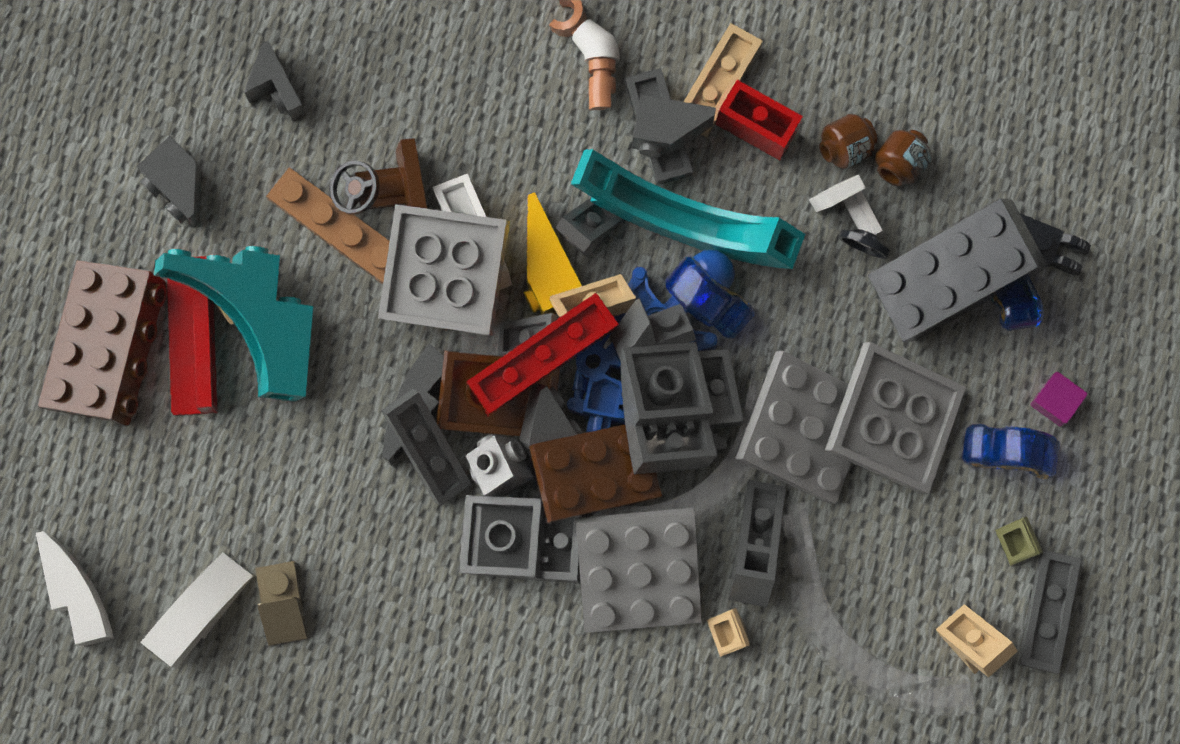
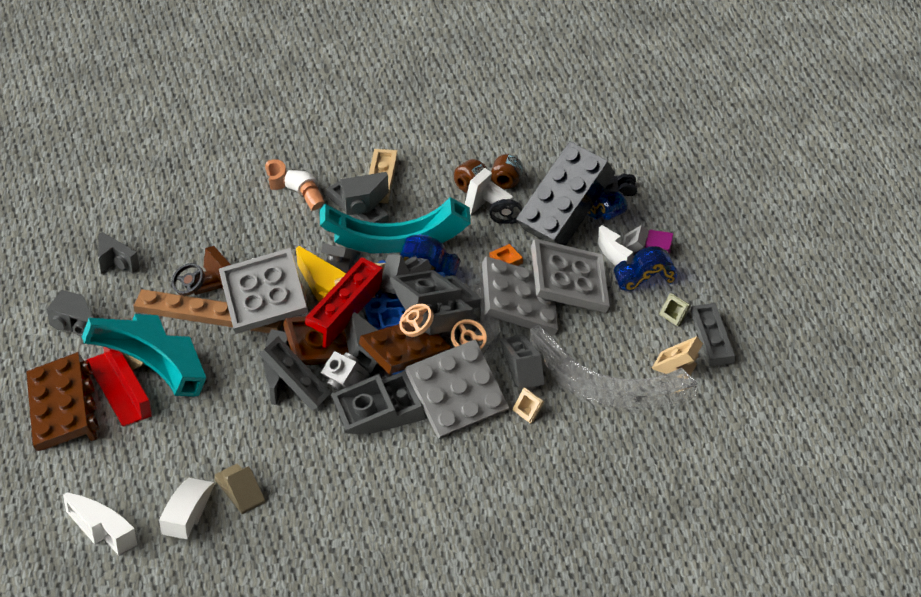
camera: 20 degrees left, 35 degrees down
(628, 448) = (416, 310): none -> light nougat piece
(681, 499) = (468, 332): none -> light nougat piece
(758, 120) = (414, 179): red brick -> none
(827, 325) = (508, 255): none -> orange tile
(986, 373) = (610, 246): none -> white slope
(1024, 380) = (635, 239): none -> light grey plate

